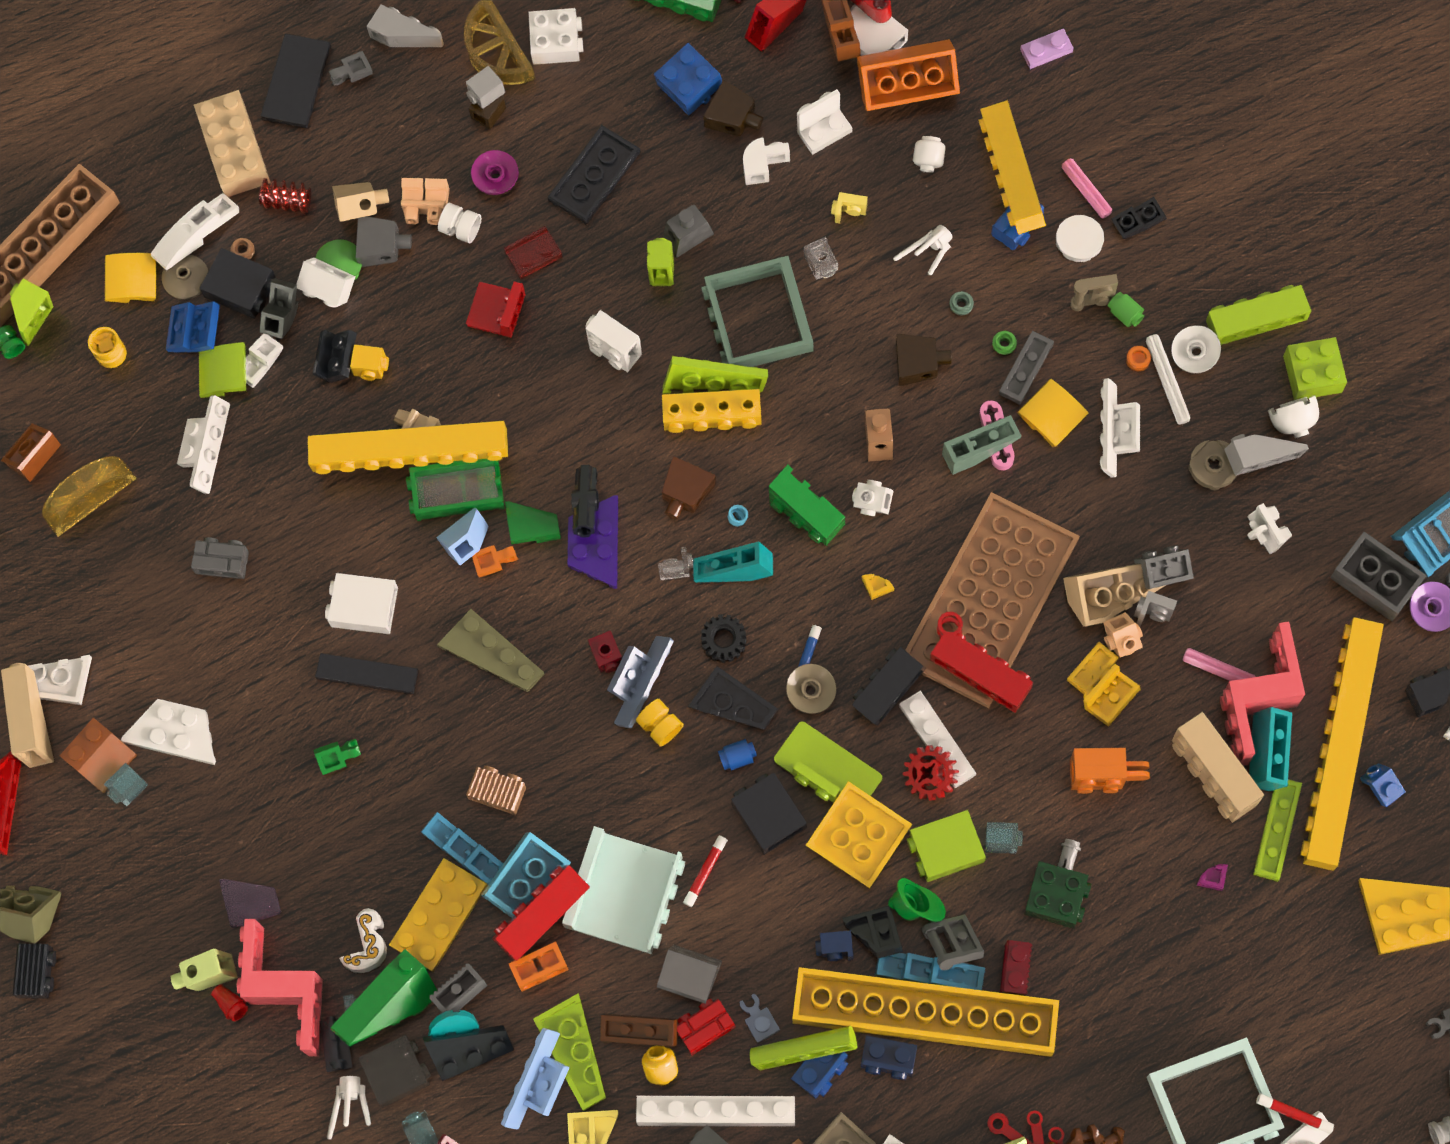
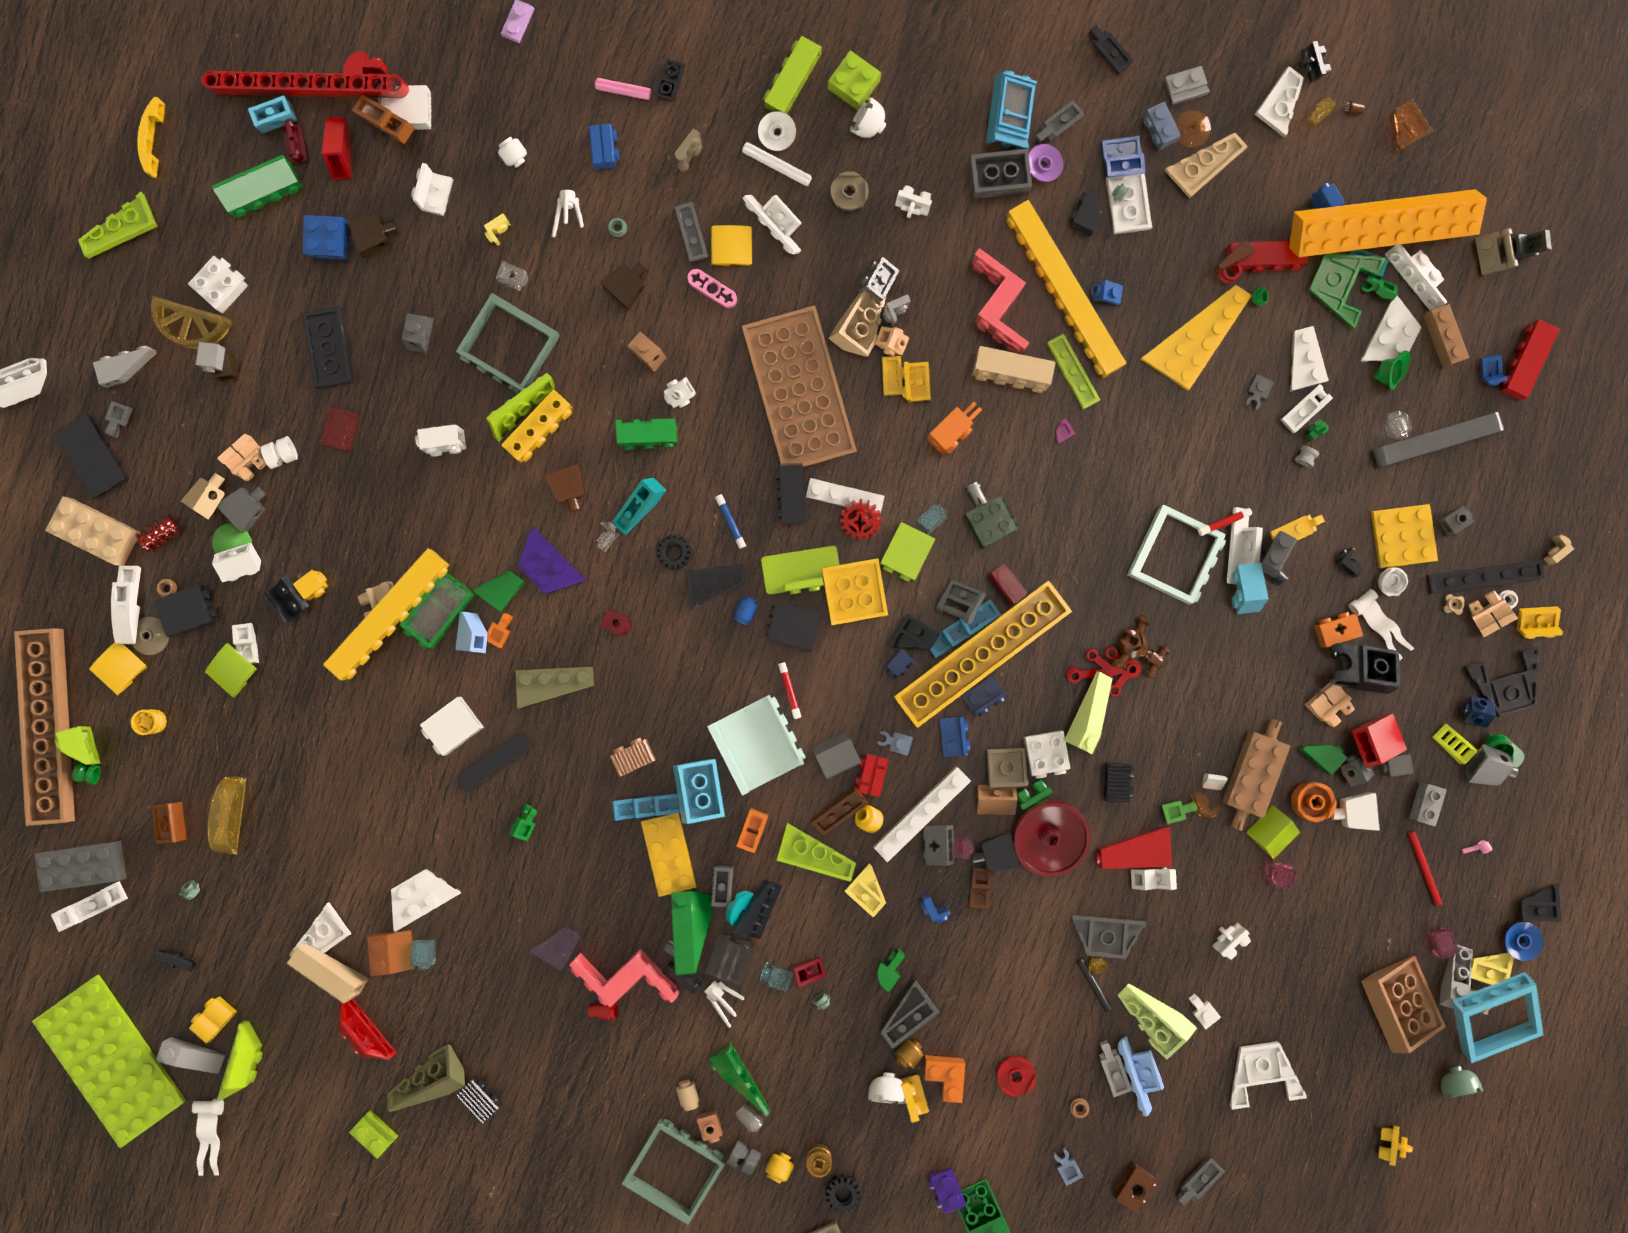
camera: 55 degrees left, 15 degrees up
(192, 327) = (186, 662): blue slope -> none
(202, 444) = (264, 723): white bracket -> none
(205, 971) = (573, 1008): yellowish green torso -> none
(220, 558) = (344, 779): dark grey brick -> none
(281, 310) = (228, 604): pearl dark grey brick -> none
(373, 944) = (648, 904): white animal -> none
(494, 163) = (262, 395): magenta dish -> none
(496, 308) = (352, 483): red bracket -> none
(538, 1083) = (814, 891): light blue bracket -> none
(540, 912) = (726, 803): brick -> none
(585, 501) = (519, 548): black piece -> none
(635, 678) = (648, 621): sand blue bracket -> none
(659, 722) = (685, 634): yellow wheel -> none
(660, 262) = (421, 366): lime brick -> none
(741, 514) = (612, 470): medium azure hinge -> none
(758, 156) = (414, 246): white brick -> none
(803, 1048) = (936, 736): lime brick -> none
(819, 679) = (756, 527): dark tan dish -> none
(876, 585) = (728, 440): yellow tile -> none
(908, 75) = (454, 114): orange brick -> none
(915, 901) = (920, 598): green piece -> none
(977, 667) = (831, 436): red hinge -> none
(979, 444) = (709, 303): sand green slope -> none
(1004, 336) = (661, 223): bright green plate -> none
(1012, 166) = (569, 115): yellow brick -> none
(1079, 238) = (647, 123): white tile -> none
(1126, 309) = (715, 143): bright green brick -> none
(1138, 358) = (748, 167): orange tile -> none
(1214, 666) = (960, 309): bright pink axle -> none
(1260, 452) = (868, 161): light grey slope -> none
(1272, 748) = (1030, 326): teal brick -> none

